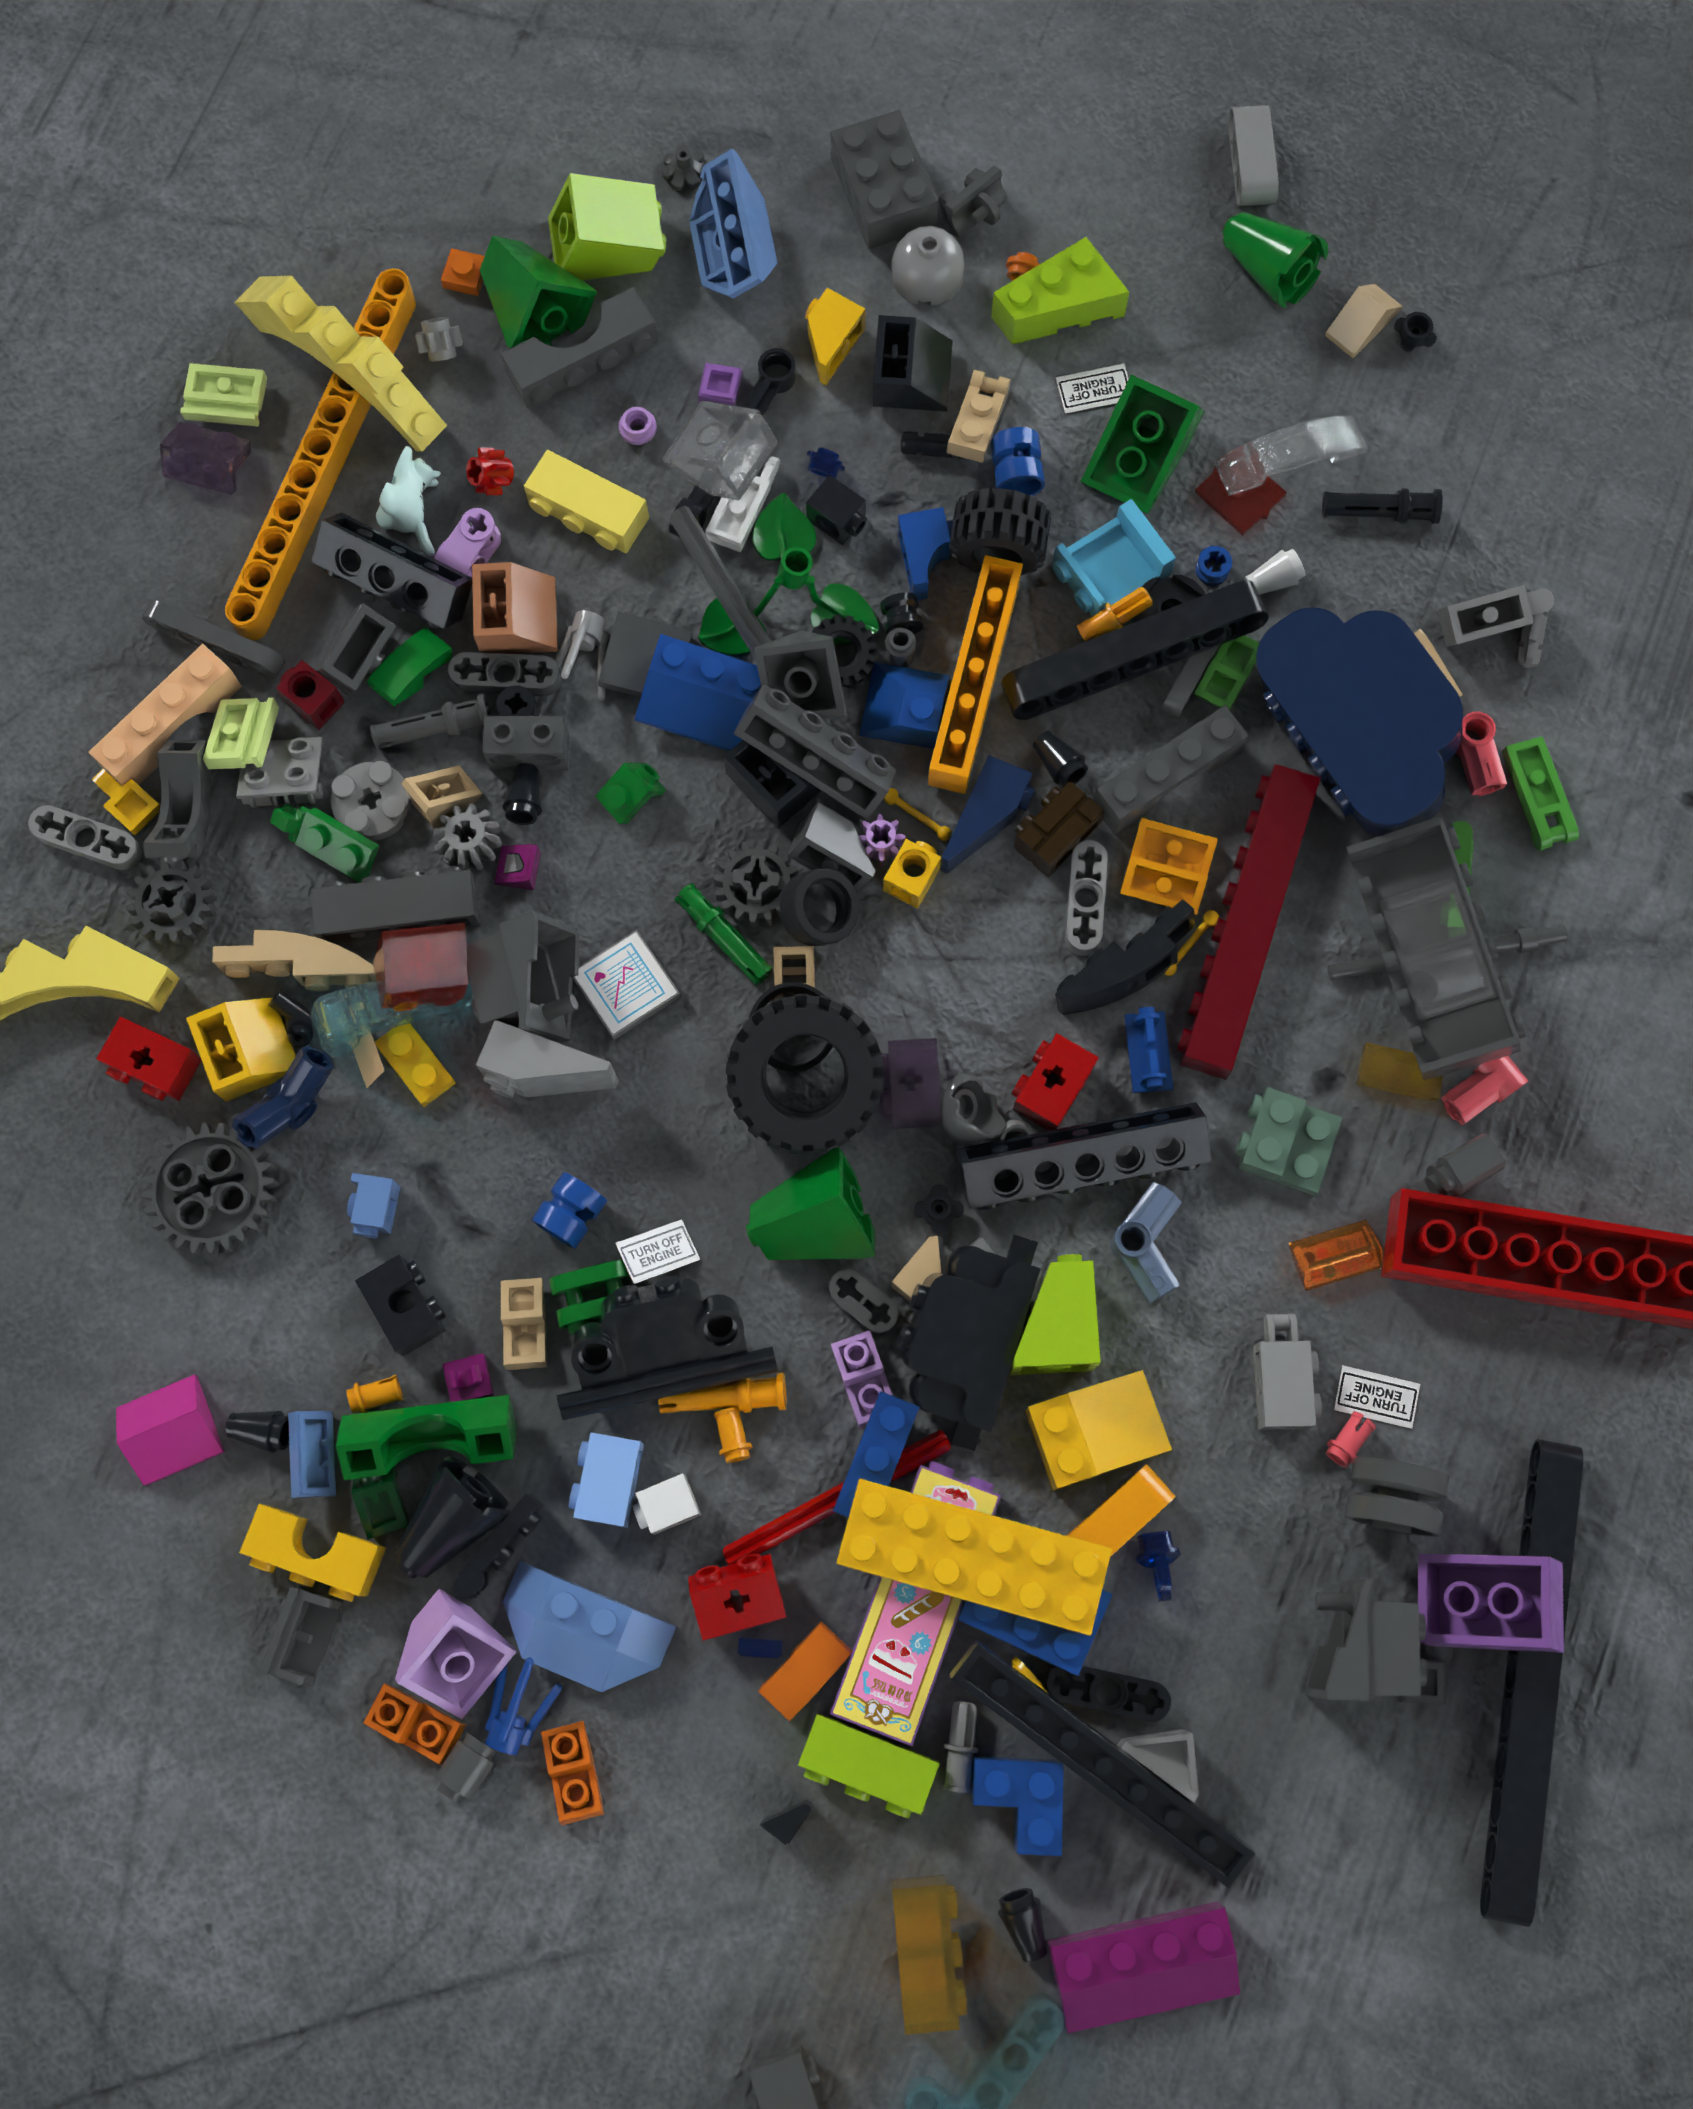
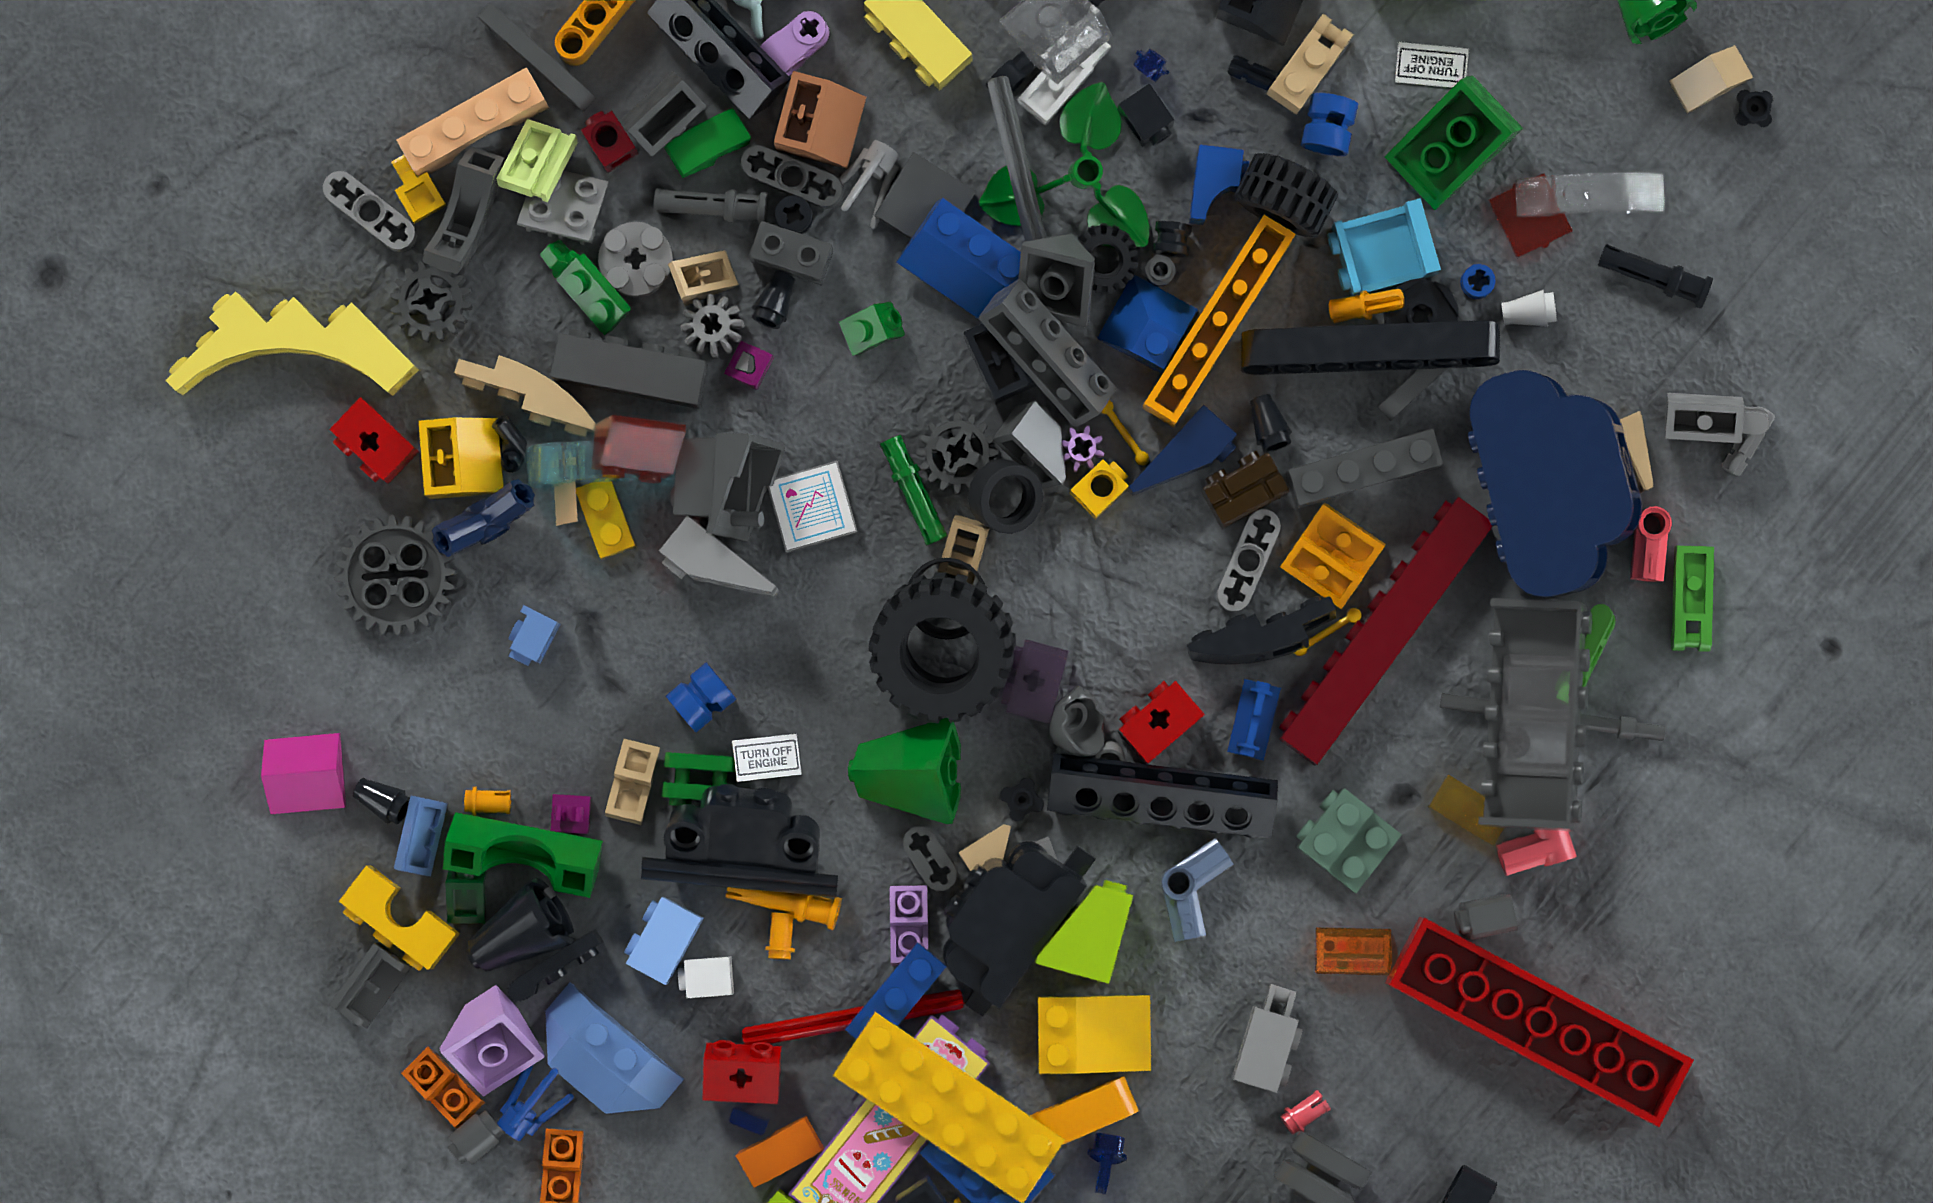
camera: 20 degrees right, 10 degrees up
(382, 1290) = (518, 715): black brick -> none
(1228, 672) = (1451, 392): bright green slope -> none
(1377, 1396) = (1343, 1083): white sticker -> none

